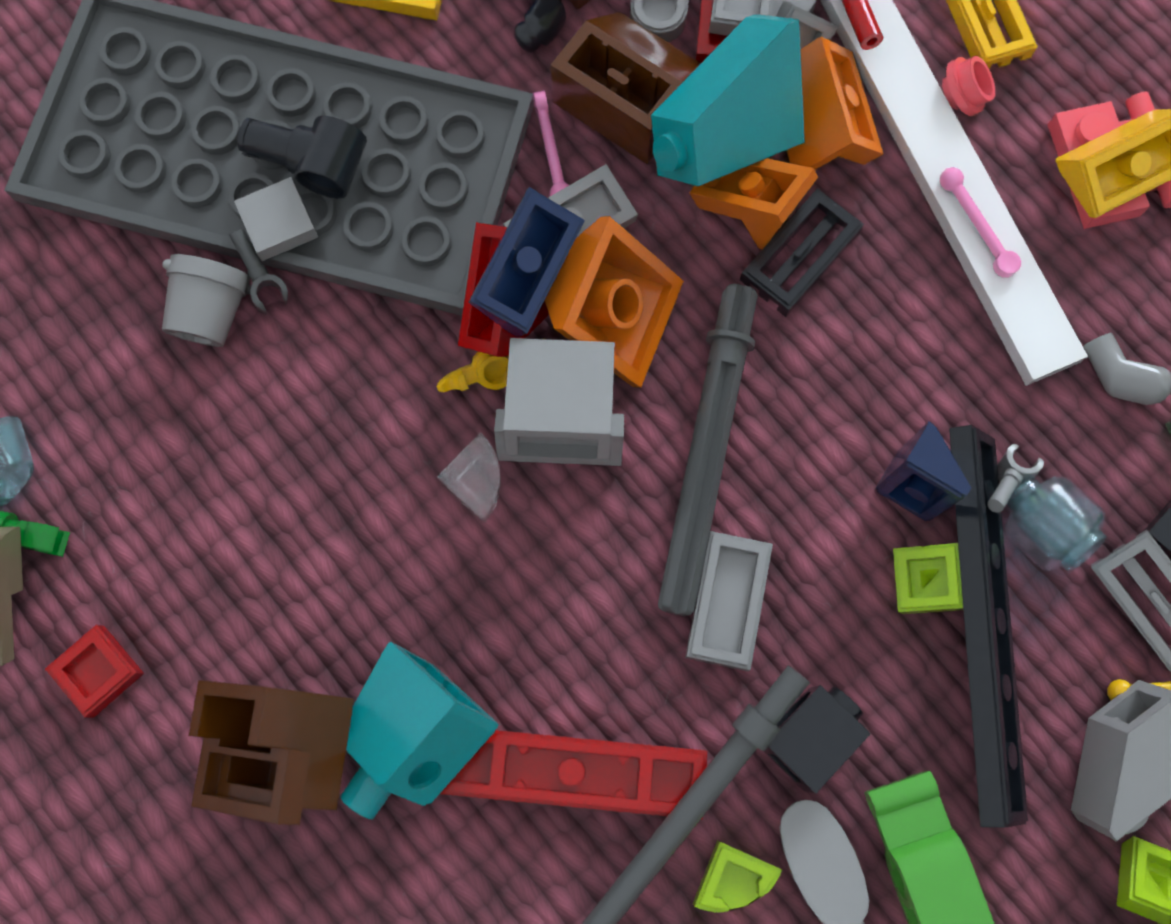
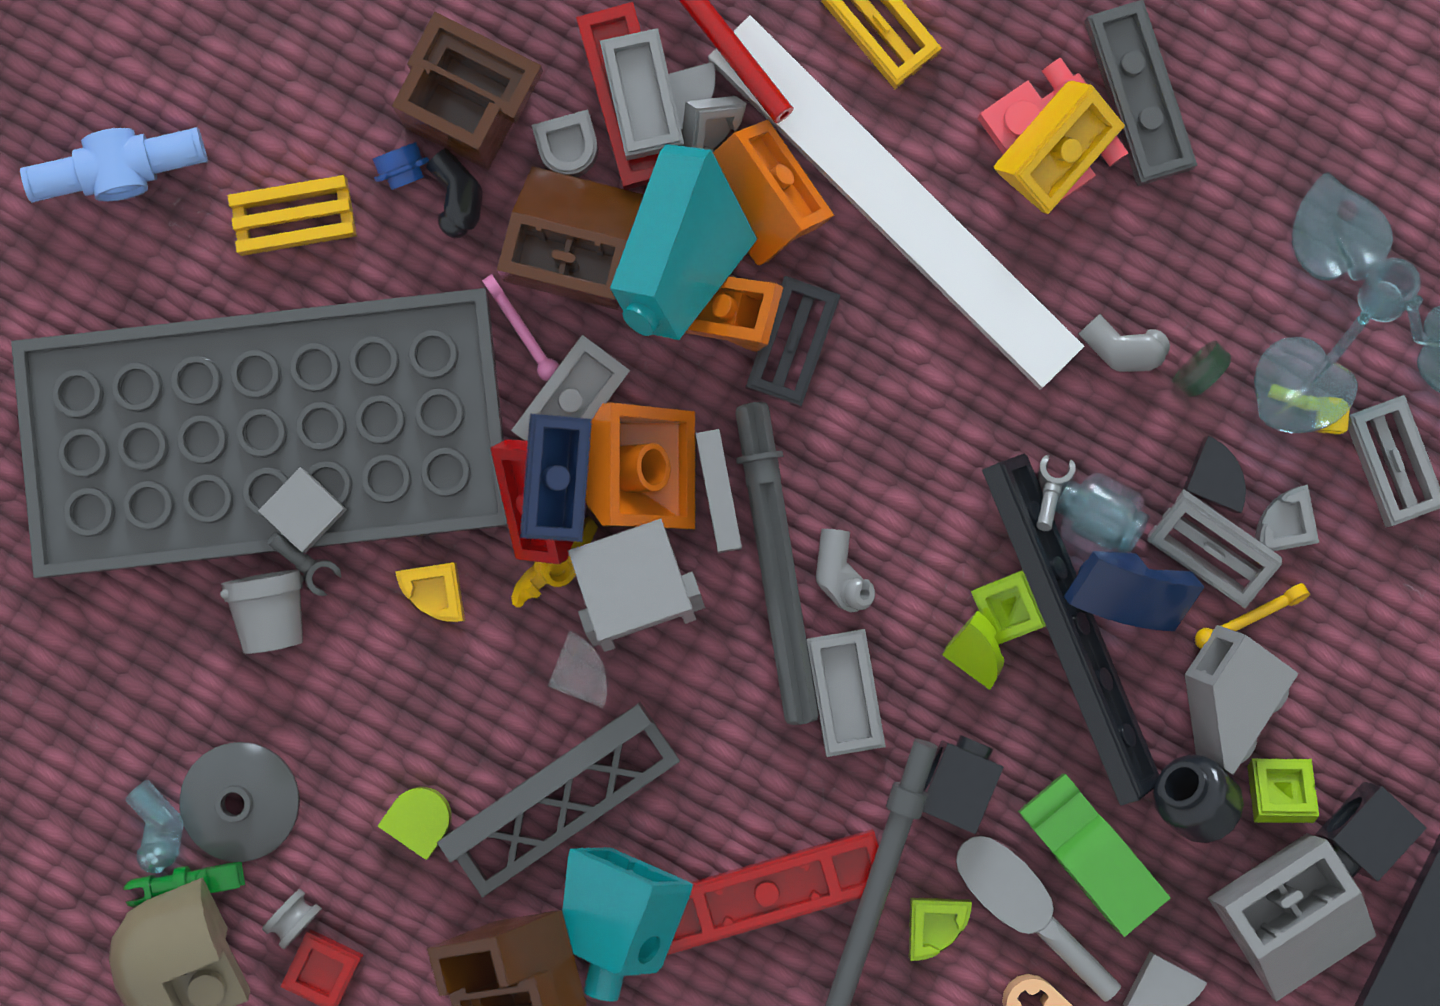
camera: 25 degrees left, 10 degrees up
(87, 604) = (291, 919): none -> light grey bush
(115, 493) = (268, 796): none -> dark grey dish
(256, 559) = (418, 820): none -> lime tile
(318, 156) = (317, 436): black pin -> none
(369, 349) = (434, 590): none -> yellow tile
(393, 568) = (546, 781): none -> dark grey fence
(678, 355) = (718, 491): none -> light grey tile
(762, 483) = (837, 577): none -> light grey arm
(880, 608) = (976, 650): none -> lime tile
(924, 476) = (970, 526): dark blue slope -> none
(968, 85) = (890, 115): coral plate -> none
(1006, 262) = (981, 285): bright pink hinge -> none
(1066, 607) = (1130, 593): none -> dark blue slope
(1067, 854) = (1198, 798): none -> black head

